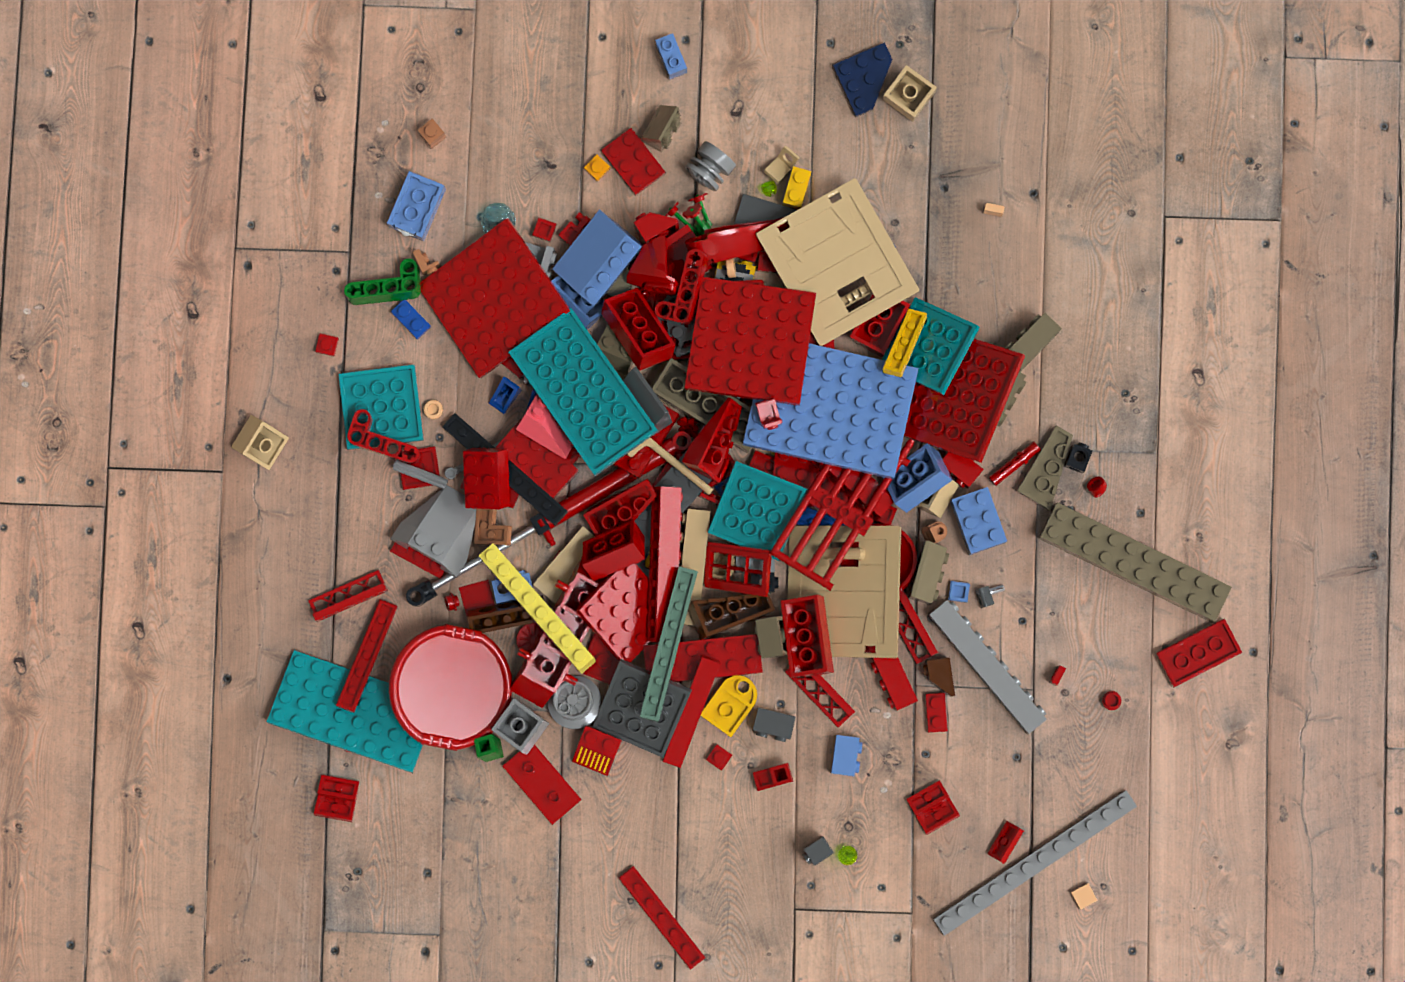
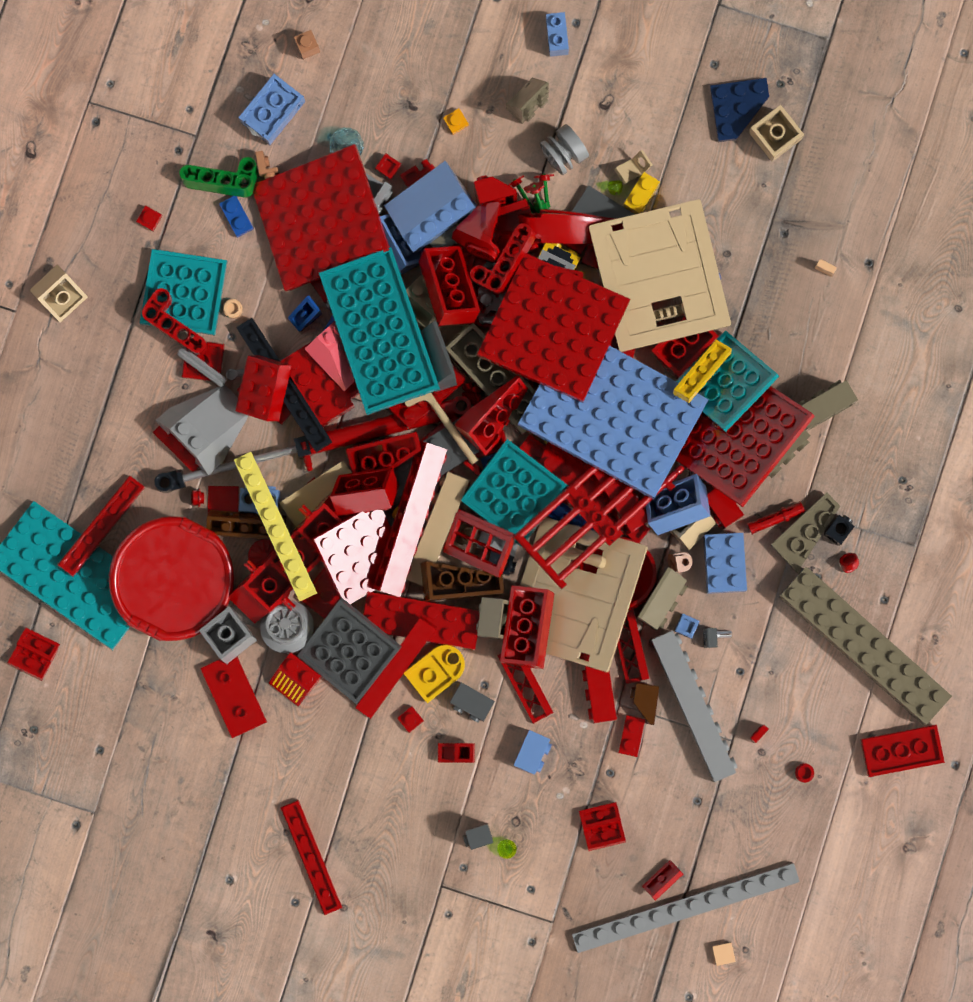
camera: 20 degrees right, 0 degrees up
(348, 602) = (103, 469): red fence -> none
(488, 532) = (250, 439): nougat plate -> none
(488, 748) = (192, 647): green brick -> none
(633, 161) = (492, 125): red plate -> none
(668, 644) = (391, 596): sand green plate -> none
(730, 267) = (555, 252): light nougat tile -> none
(768, 414) = (550, 402): bracket -> none

